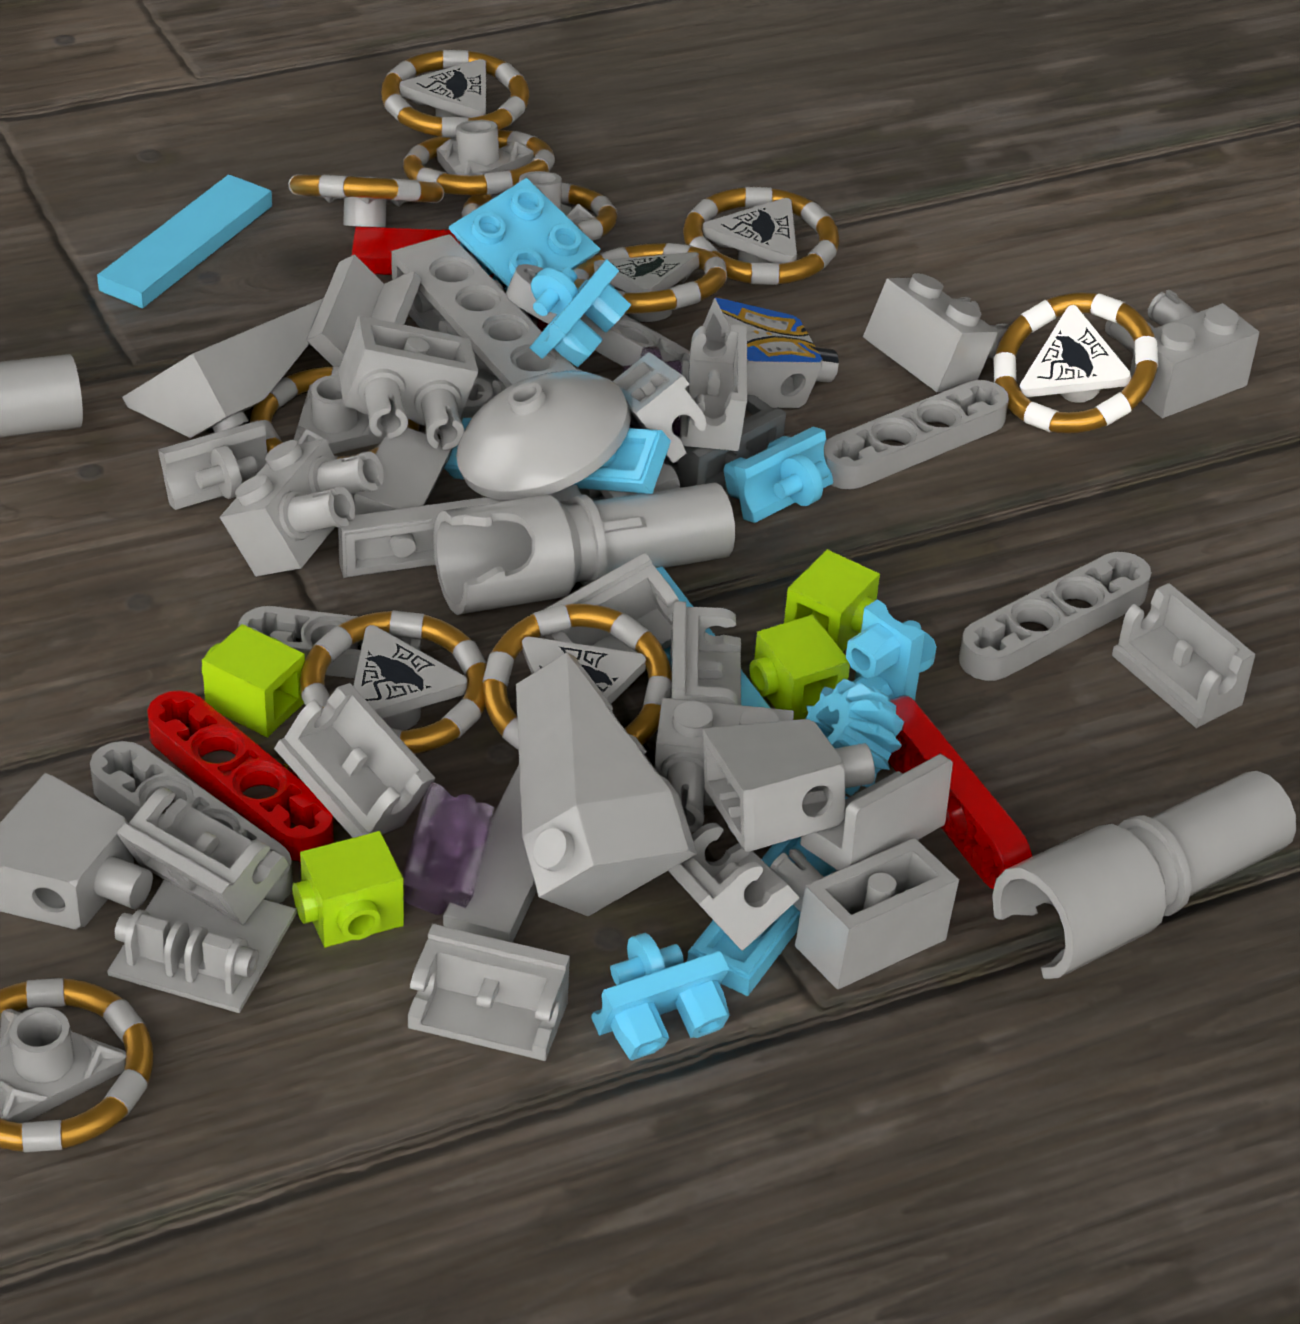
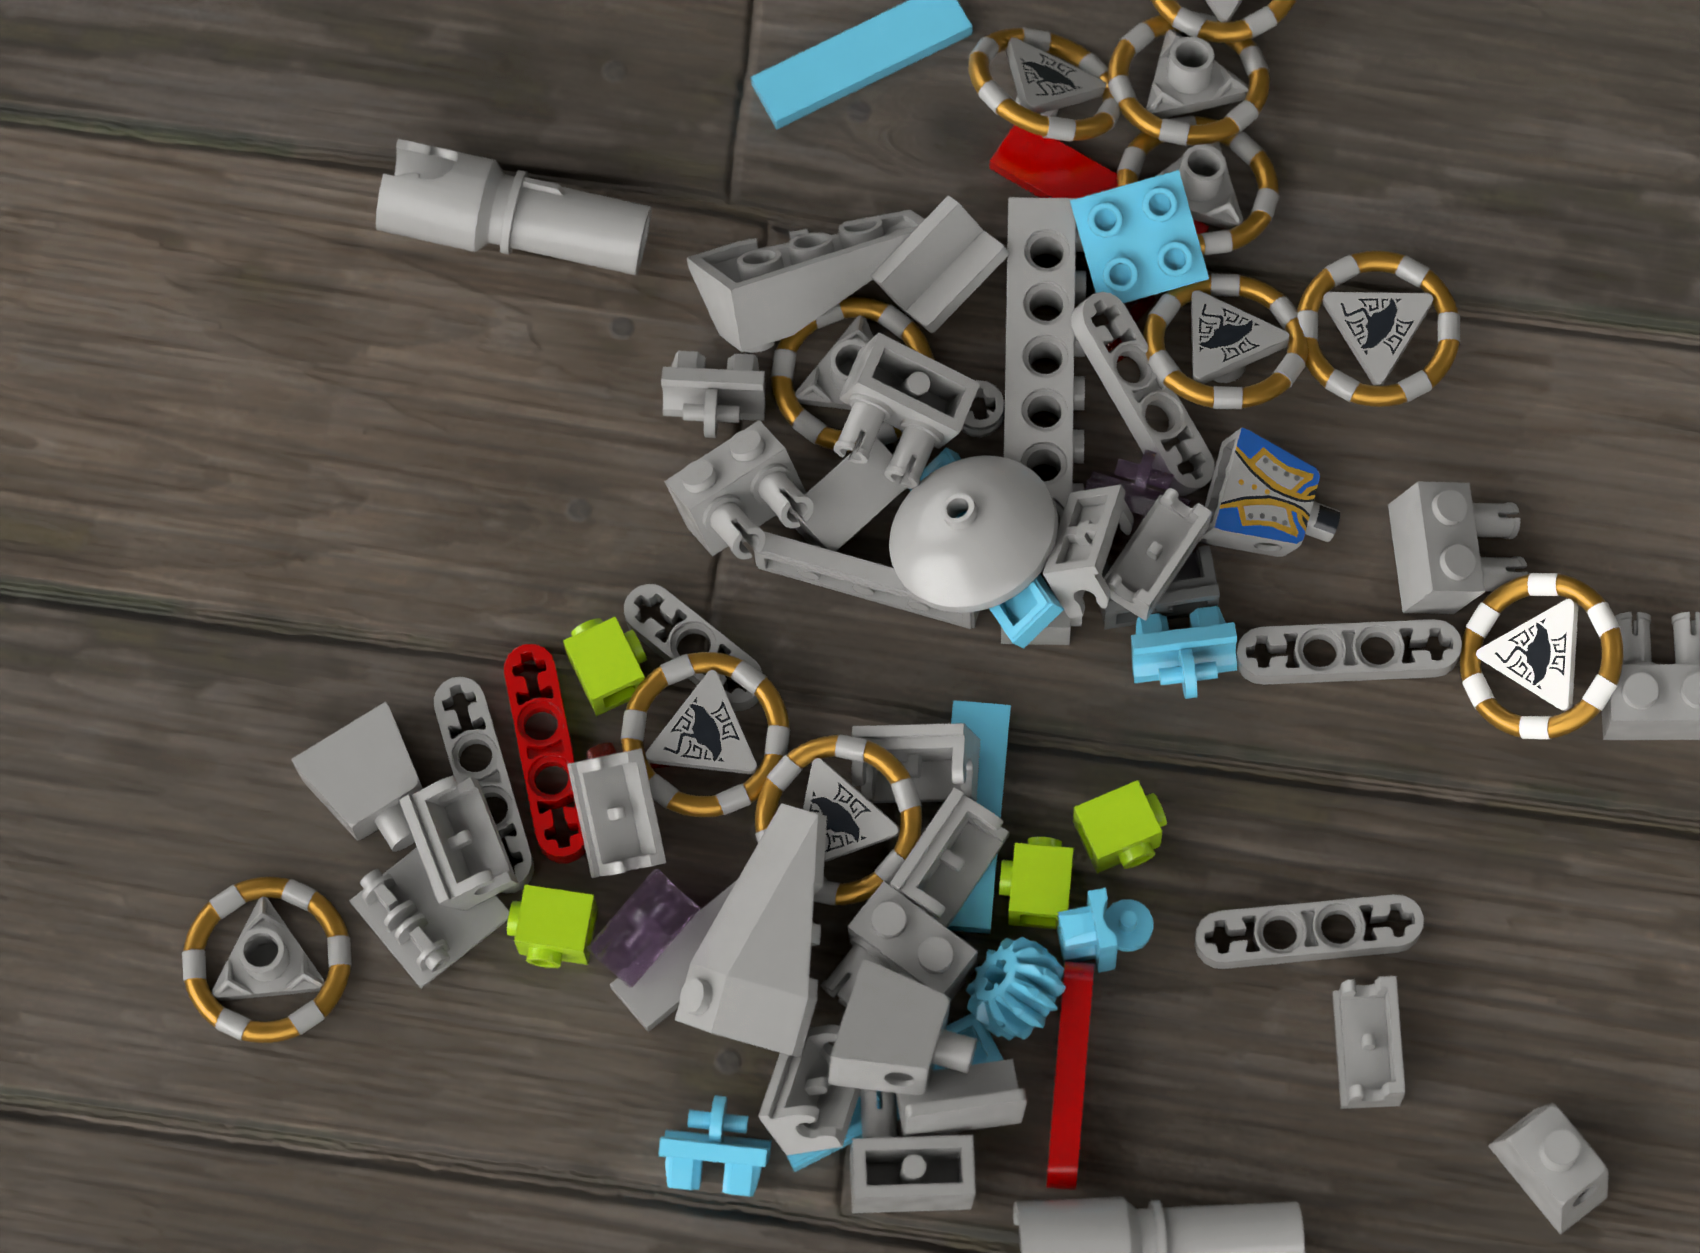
camera: 40 degrees right, 30 degrees up
(489, 992) = (596, 1077): light grey hinge -> none
(541, 548) = (906, 647): light grey piece -> none
(594, 298) = (1099, 383): medium azure hips -> none

